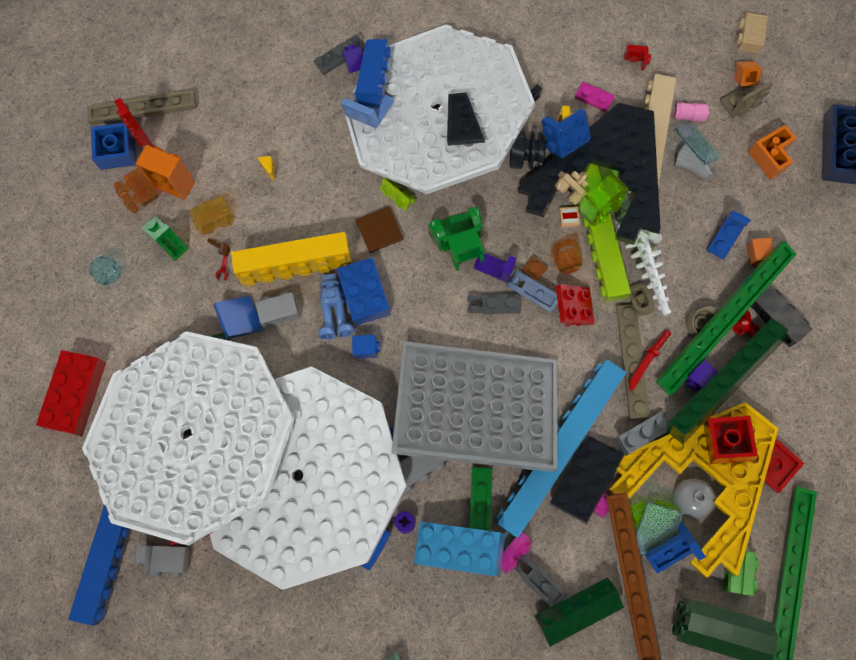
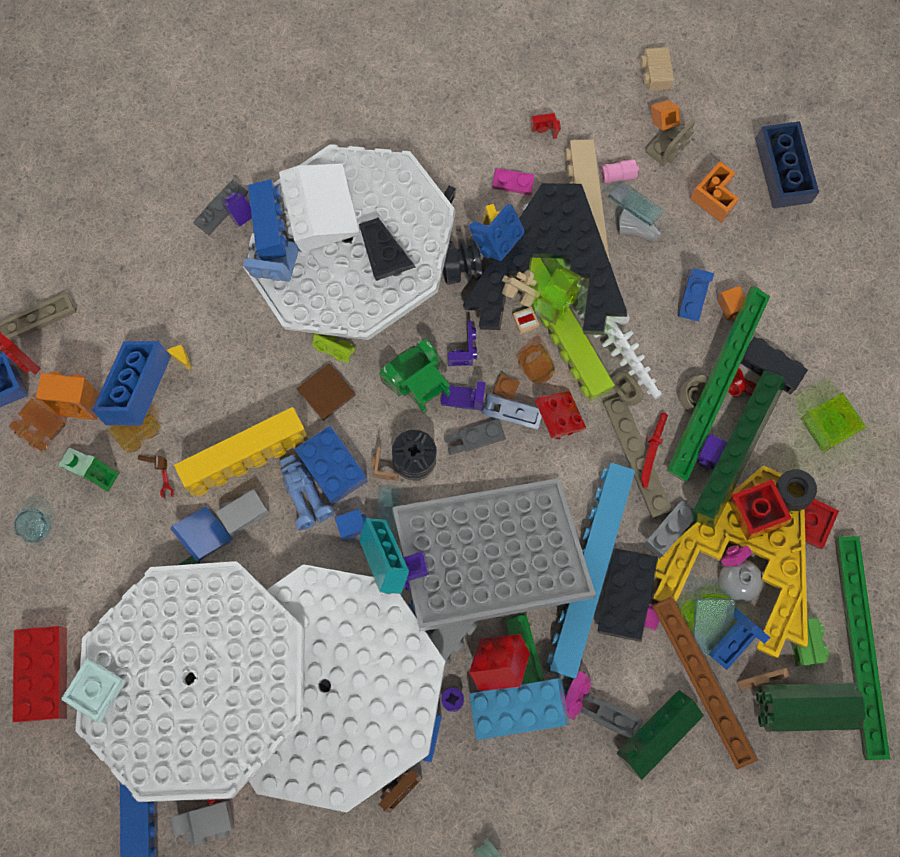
camera: 25 degrees left, 0 degrees up
(106, 419) = (93, 690): none -> light aqua plate
(219, 176) = (131, 383): none -> blue brick
(326, 590) = (394, 796): none -> reddish brown plate
(381, 380) = (383, 556): none -> teal brick
(401, 303) = (378, 474): none -> medium nougat bracket
(401, 334) = (387, 499): none -> clear light blue plate
(402, 397) = (417, 567): none -> dark purple bracket
(420, 71) = (319, 205): none -> white slope
(440, 312) = (414, 467): none -> black wheel
(454, 502) = (499, 662): none -> red brick
(503, 233) = (462, 358): none -> dark purple bracket
(687, 592) = (763, 678): none -> medium nougat tile
(696, 474) = (736, 555): none -> dark pink plate
(778, 423) = (802, 478): none -> black tyre
(822, 382) = (833, 422): none -> clear neon green brick

